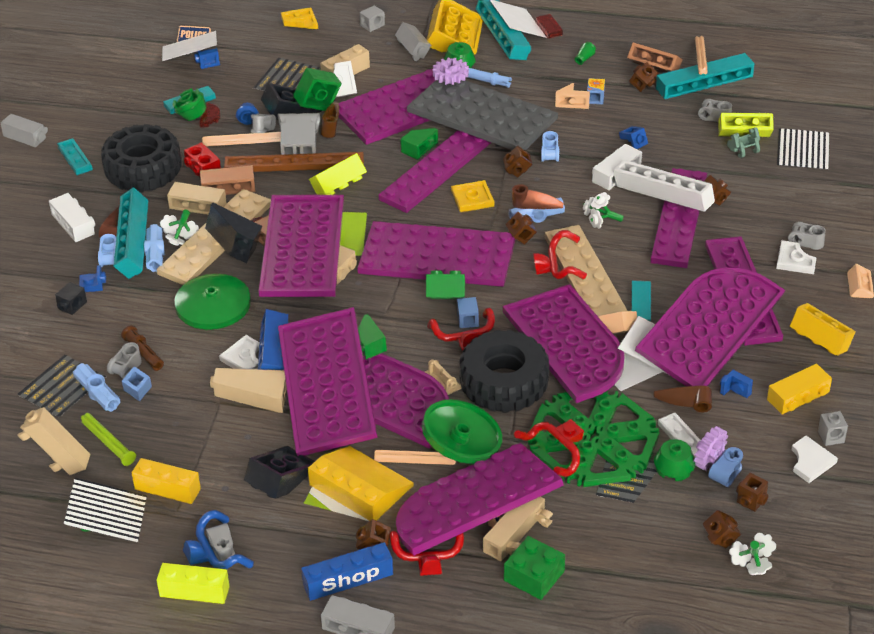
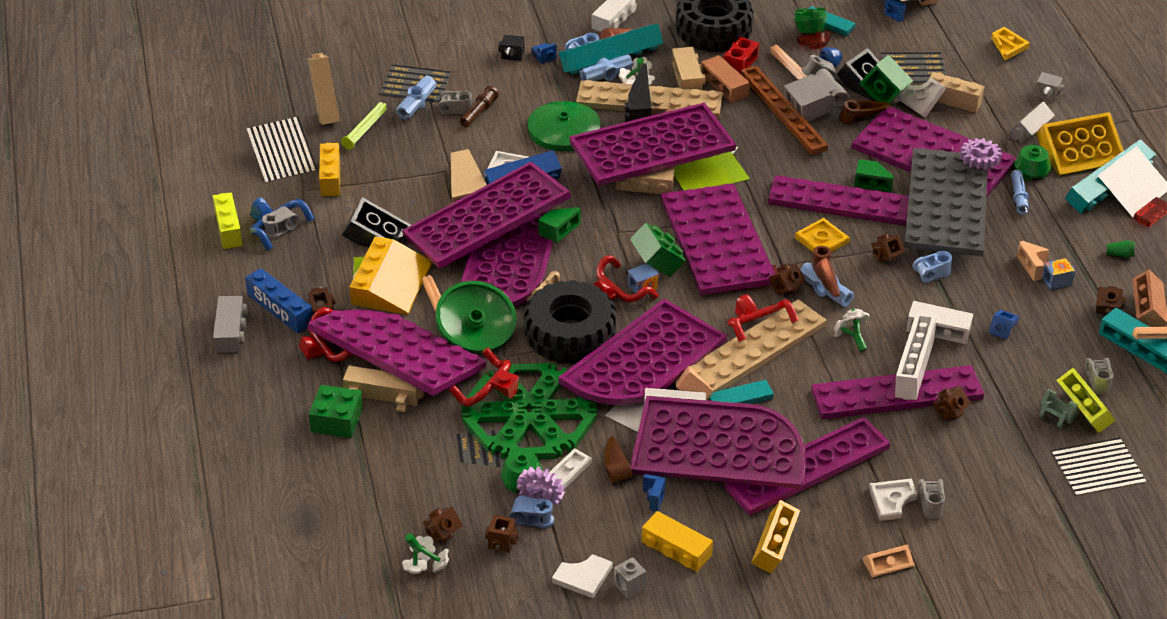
camera: 65 degrees right, 0 degrees up
(136, 383) = (427, 114): medium blue brick -> none
(338, 176) = (776, 139): neon yellow brick -> none

